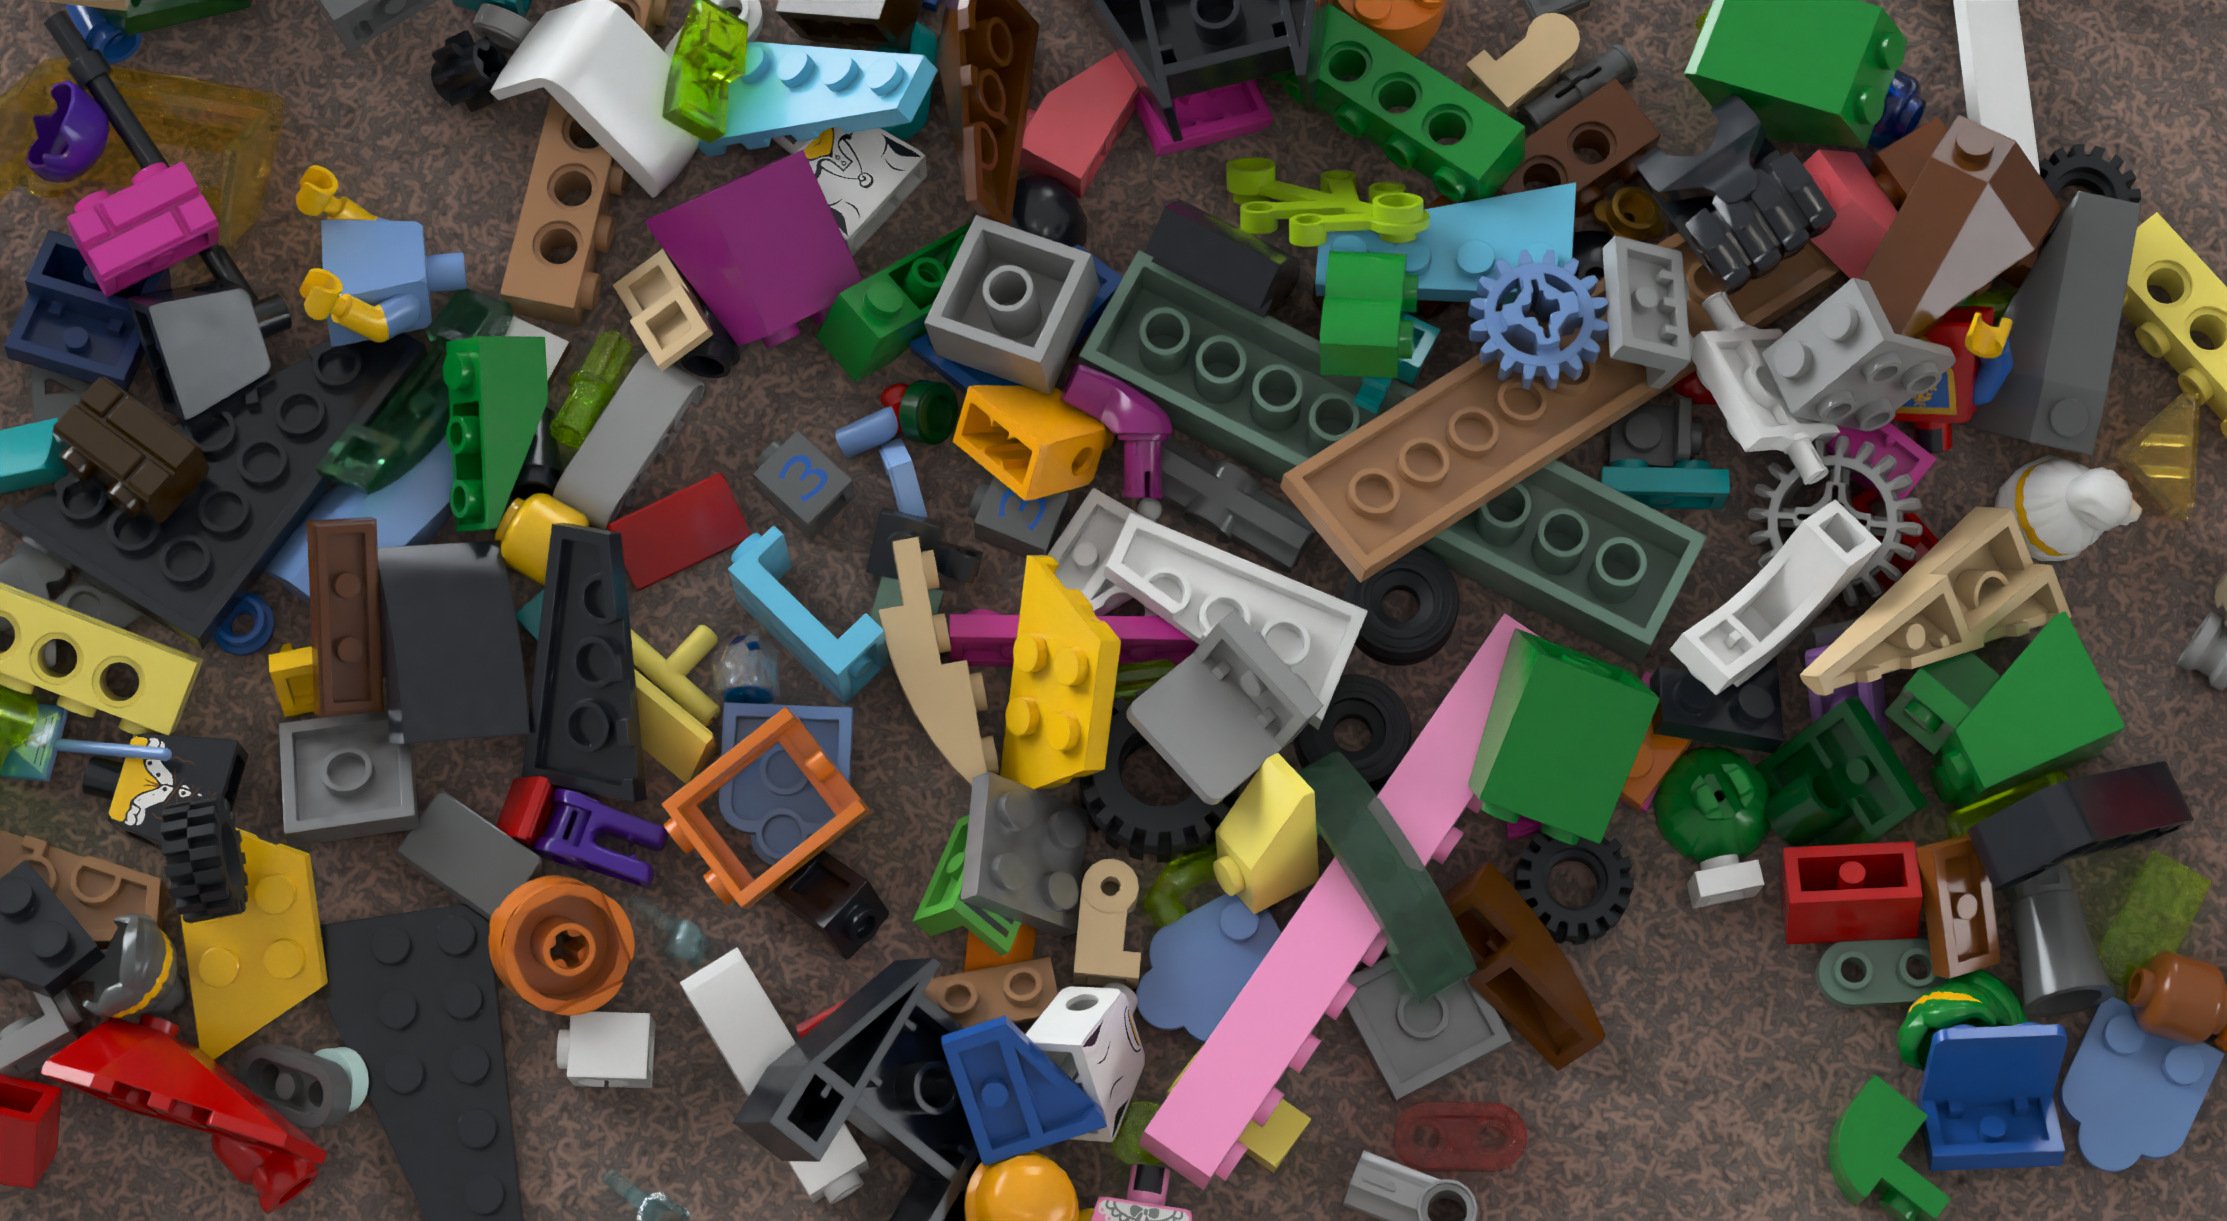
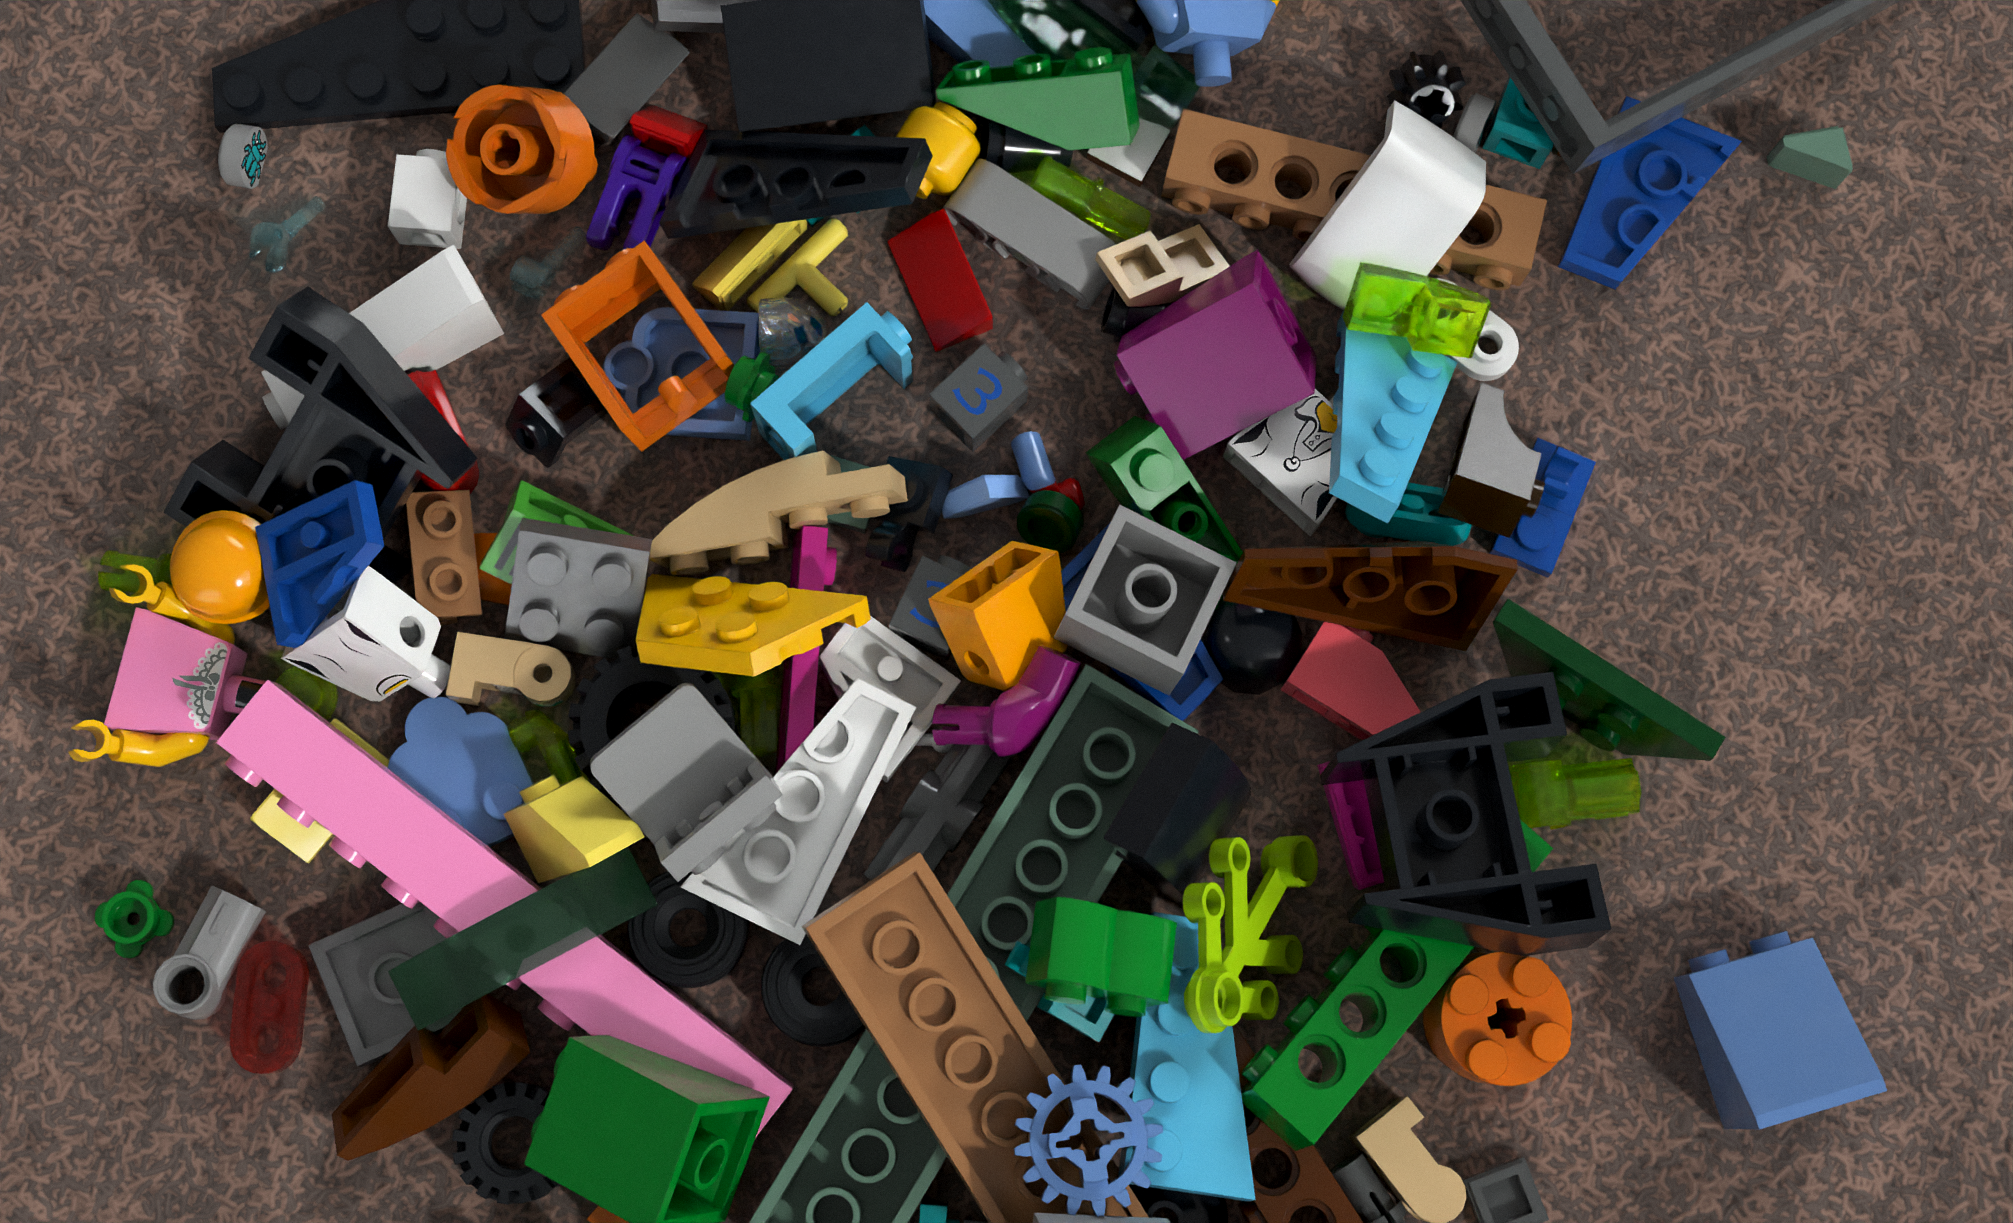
camera: 90 degrees right, 5 degrees up
(807, 694) = (748, 381): none -> green plate

